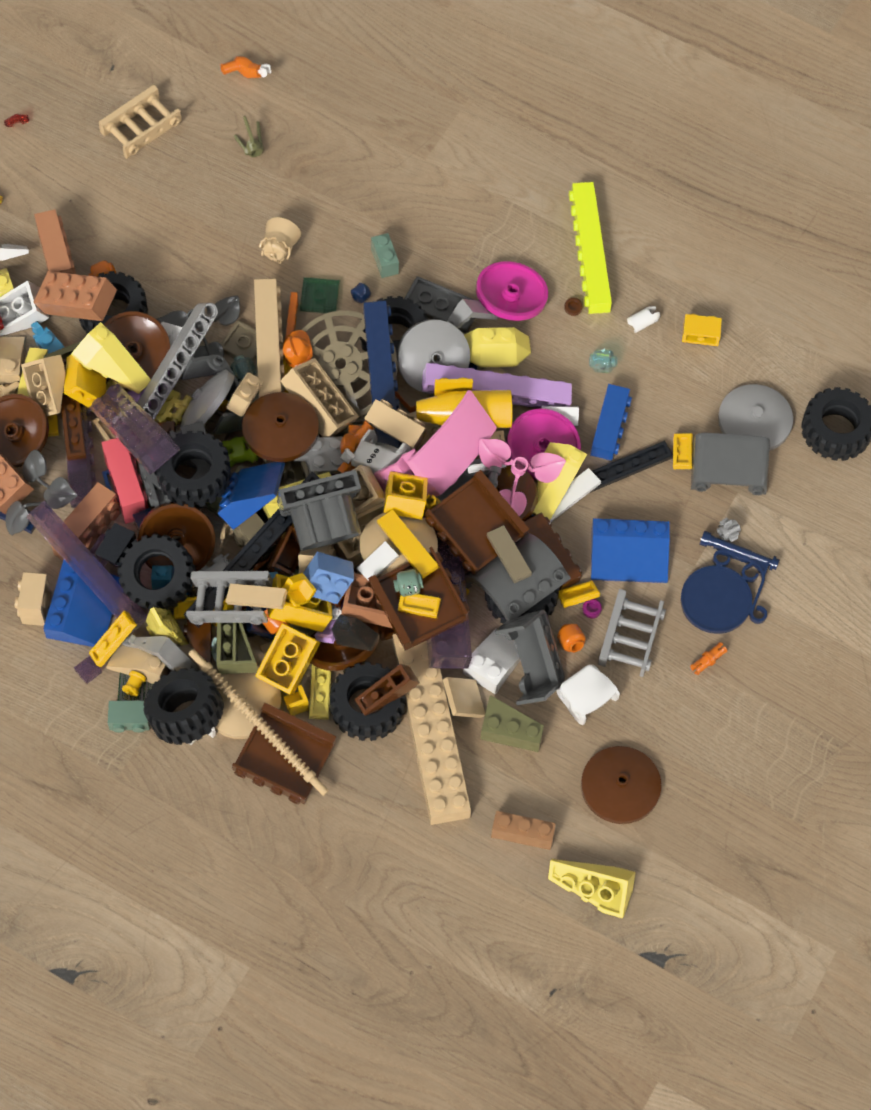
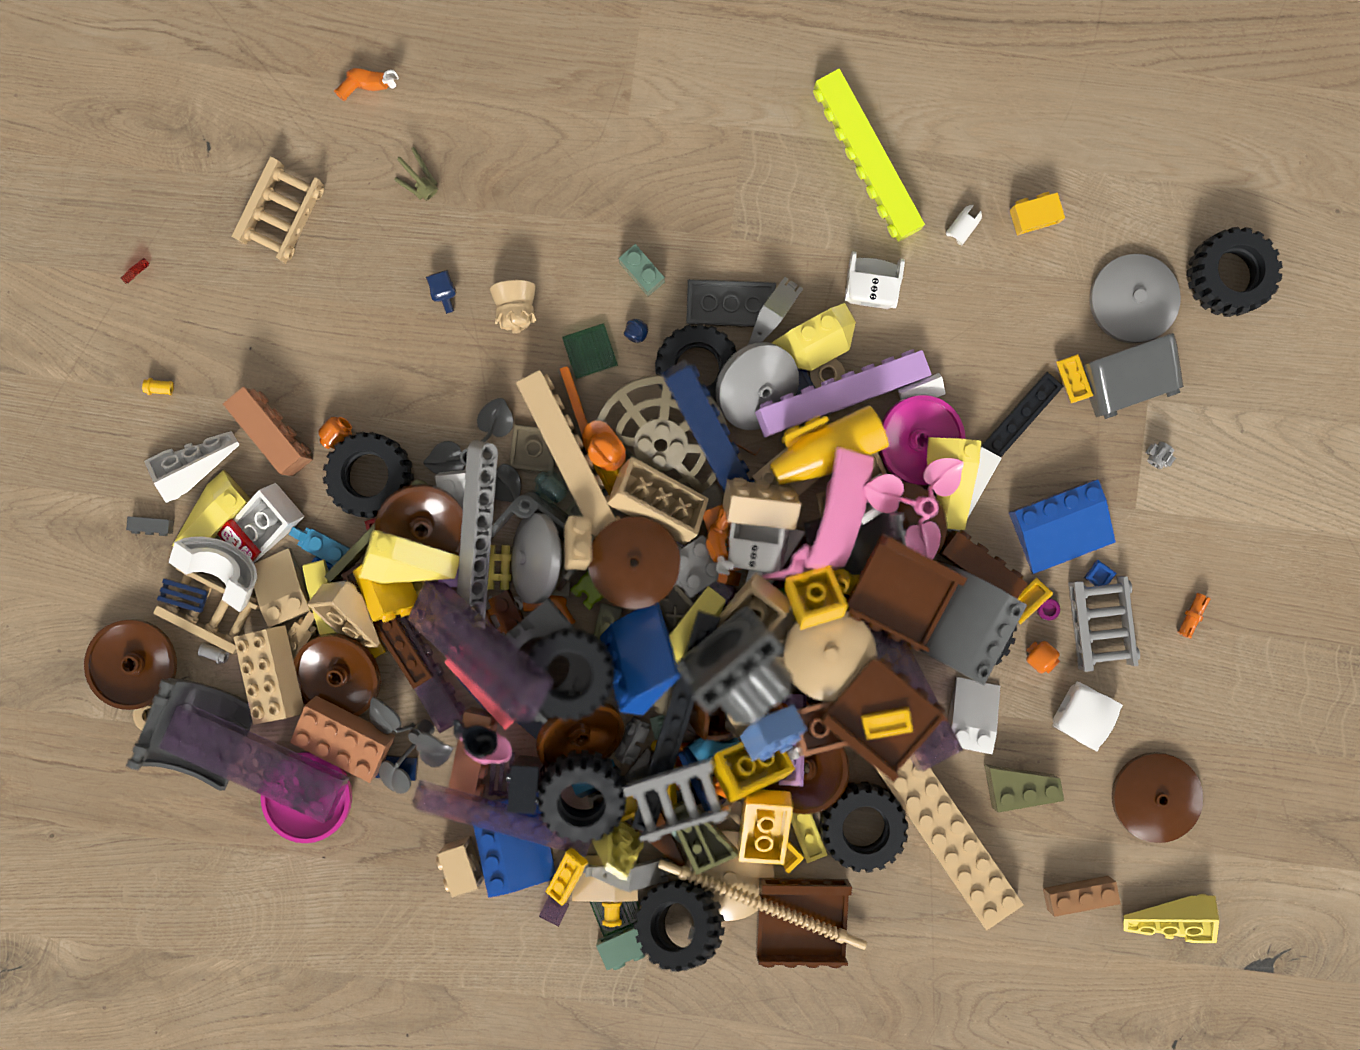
camera: 25 degrees left, 25 degrees up
(75, 296) = (324, 495): nougat brick -> none
(99, 500) = (482, 743): none -> black hair
(231, 213) = (442, 289): none -> dark blue piece
(256, 596) = (710, 796): tan tile -> none
(299, 589) = (751, 766): yellow panel -> none
(354, 633) = (824, 770): clear smoke slope -> none
(378, 561) = (820, 691): white tile -> none
(387, 689) = (889, 822): reddish brown slope -> none
(407, 544) = (846, 661): yellow tile -> none
(408, 583) = (869, 711): sand green head -> none
(464, 697) = (961, 778): tan tile -> none
(509, 554) = (955, 615): dark tan tile -> none
(511, 291) = (805, 256): dark pink dish -> none
(537, 655) = (1020, 698): dark grey windscreen -> none
(555, 329) = (873, 282): none -> white piece
(573, 306) = (878, 241): reddish brown tile -> none
(602, 361) = (942, 301): clear light blue head -> none
(610, 422) = (981, 375): blue brick -> none
(645, 598) = (1100, 574): none -> blue tile
(719, 597) = (1176, 537): dark blue piece -> none

